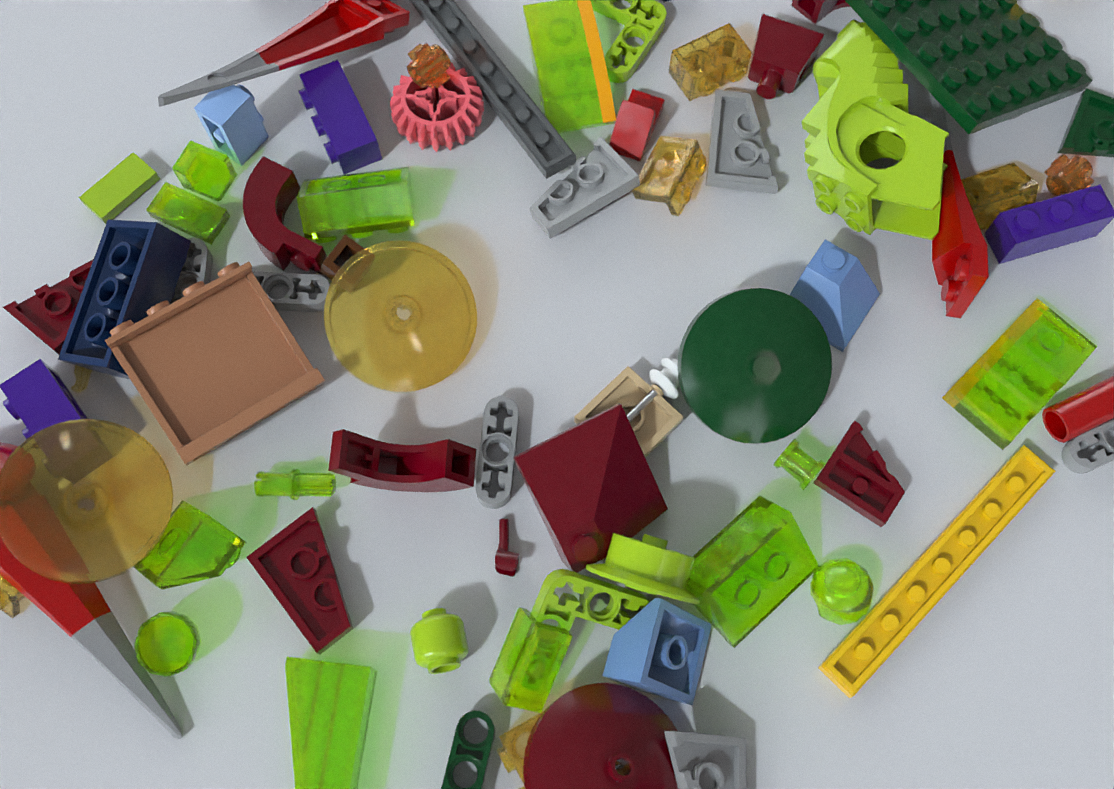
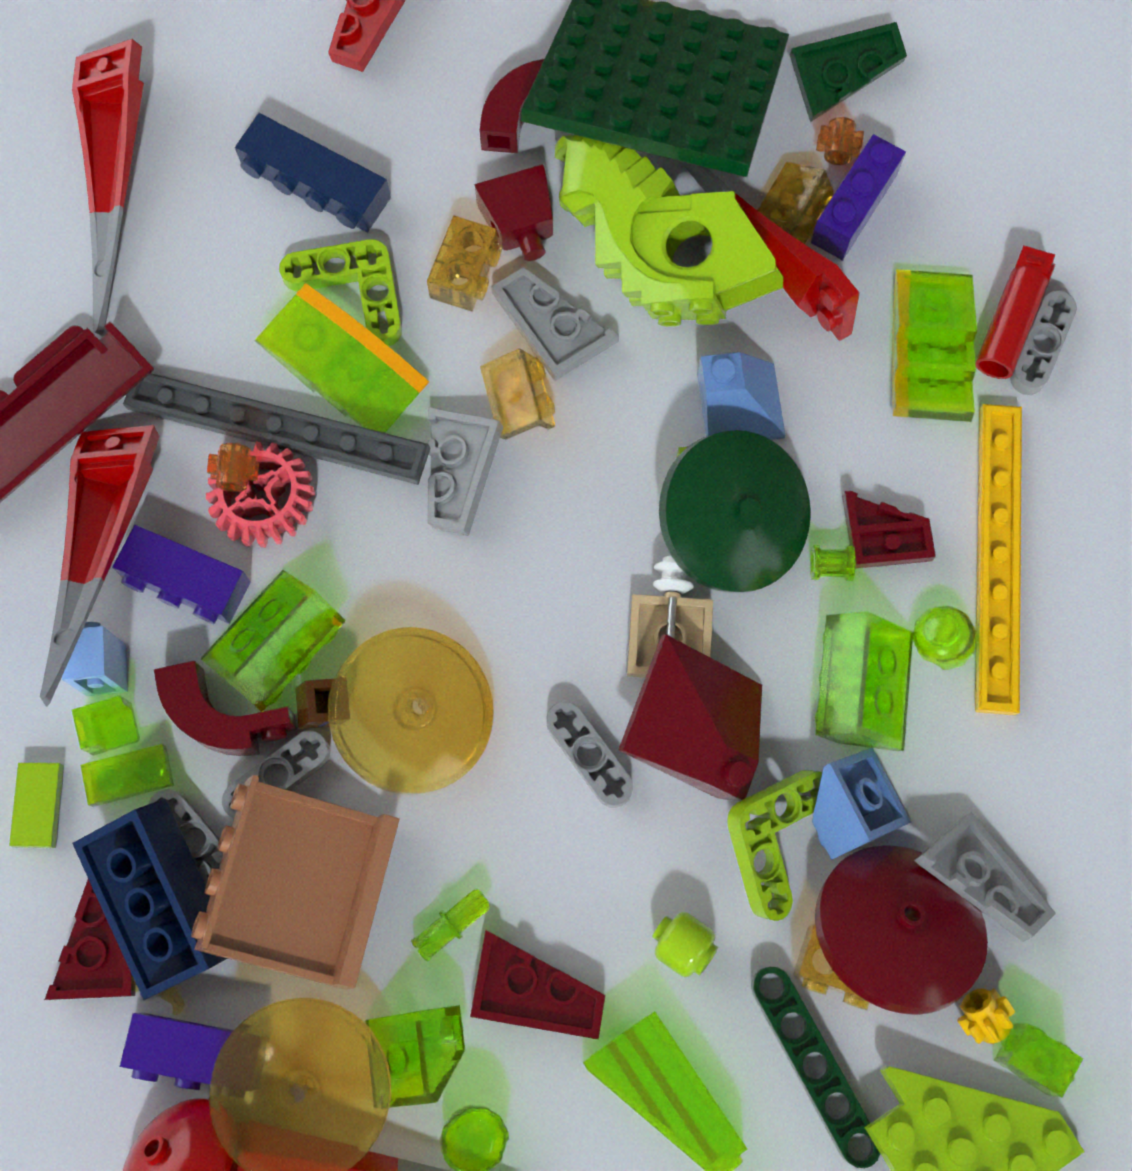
camera: 40 degrees left, 5 degrees up
(400, 467) = (529, 830): dark red arch -> none
(505, 561) = (675, 837): dark red hand -> none
(529, 662) = (767, 899): clear neon green panel -> none
(635, 124) = (448, 371): red slope -> none
(647, 567) = (798, 749): lime piece -> none

